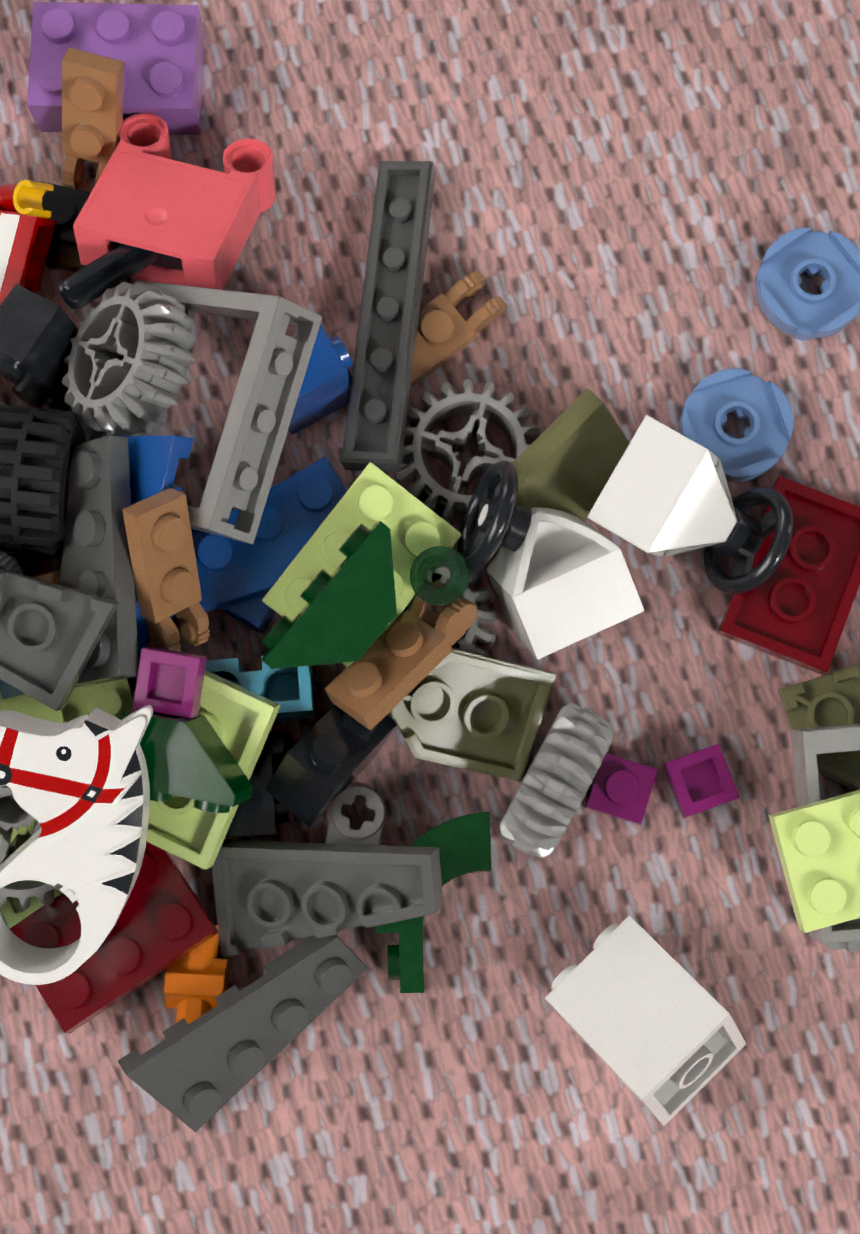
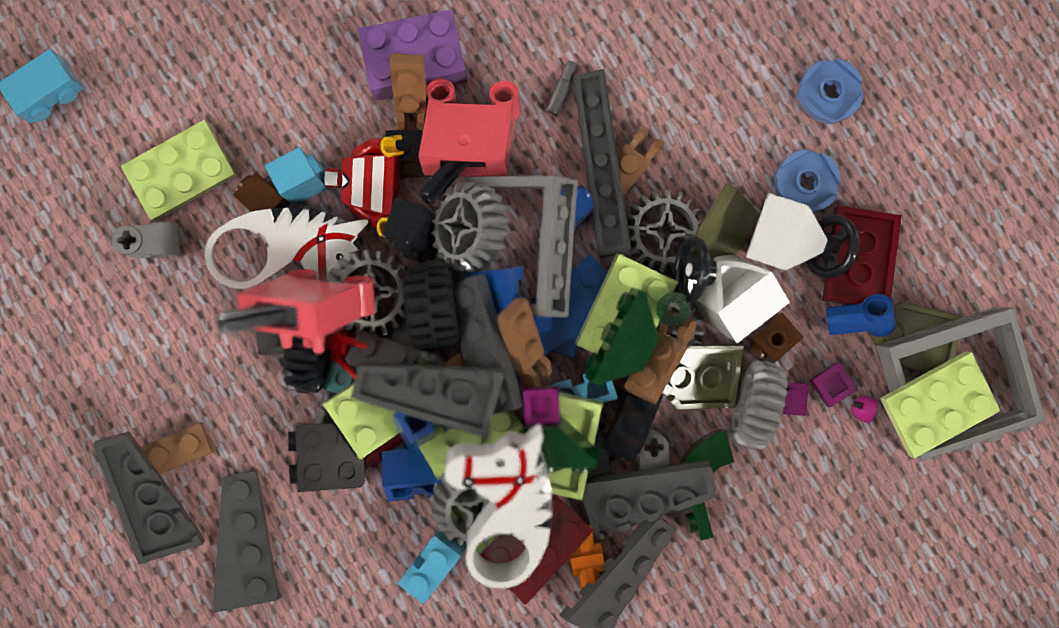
camera: 15 degrees left, 5 degrees up
(355, 180) = (561, 89): none -> flat silver pin
(614, 676) = (774, 339): none -> reddish brown brick
(646, 1018) = (833, 520): white slope -> none
(751, 837) = (867, 409): none -> dark pink hinge
(792, 672) = (873, 315): none -> blue piece

